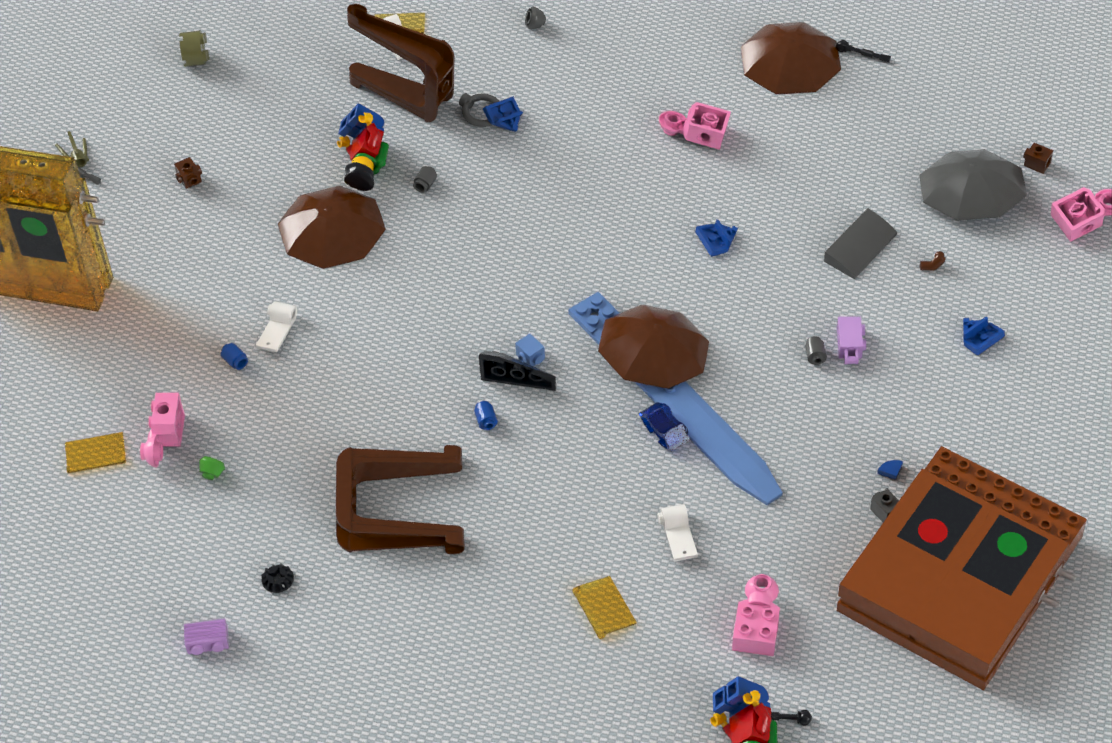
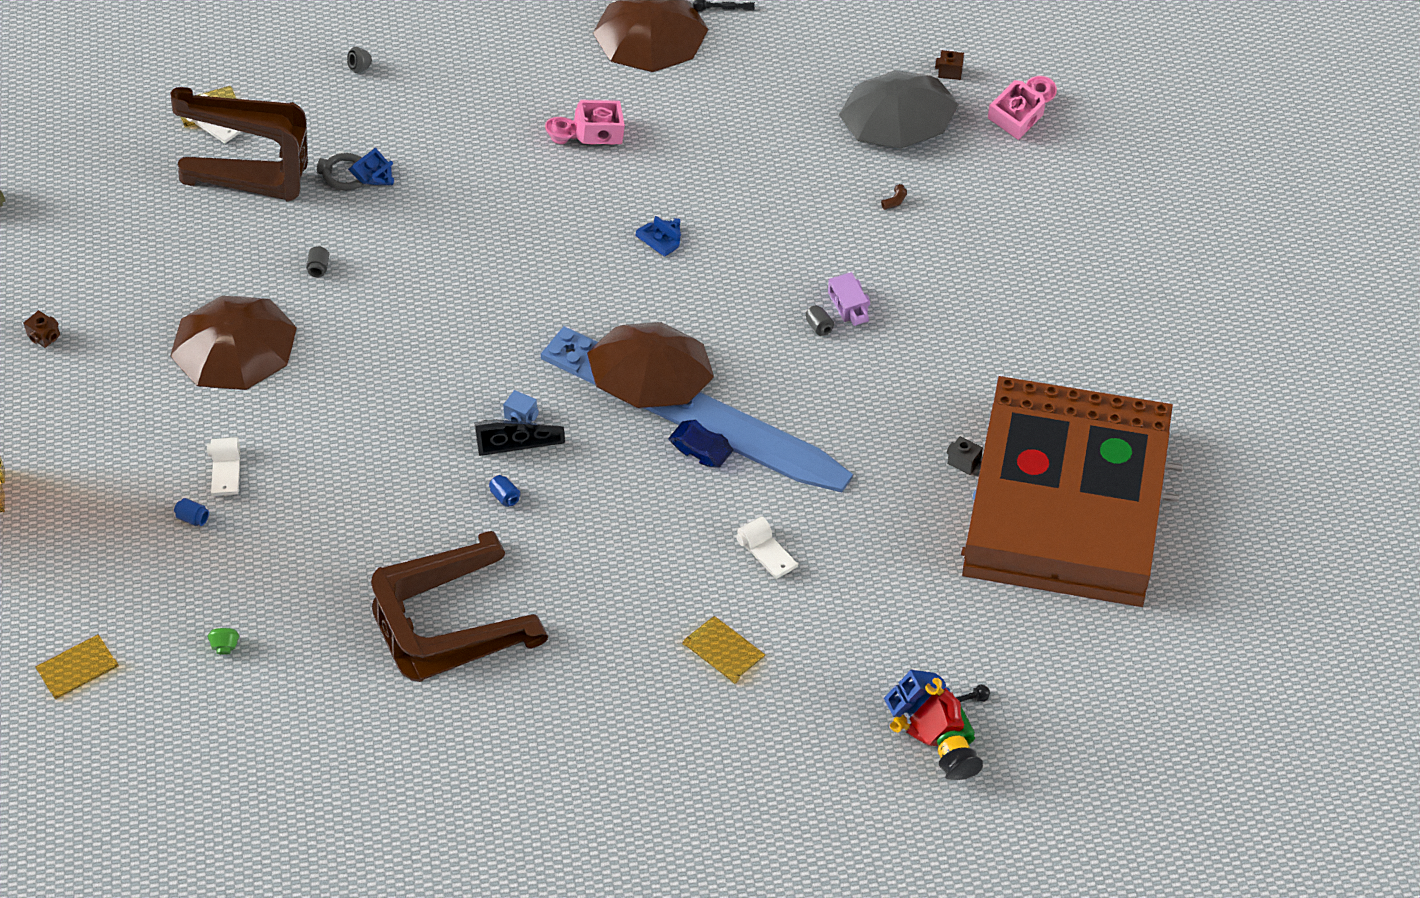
camera: 25 degrees left, 0 degrees up
(165, 426) = (149, 611): bright pink brick -> none
(206, 636) = (305, 822): lavender brick -> none
(282, 583) = (364, 735): black gear -> none
(367, 150) = (236, 244): piece -> none
(757, 617) = (890, 608): bright pink brick -> none
(860, 244) = (813, 200): dark grey slope -> none
(890, 469) = (950, 417): blue tile -> none
(980, 334) = (975, 256): blue slope -> none

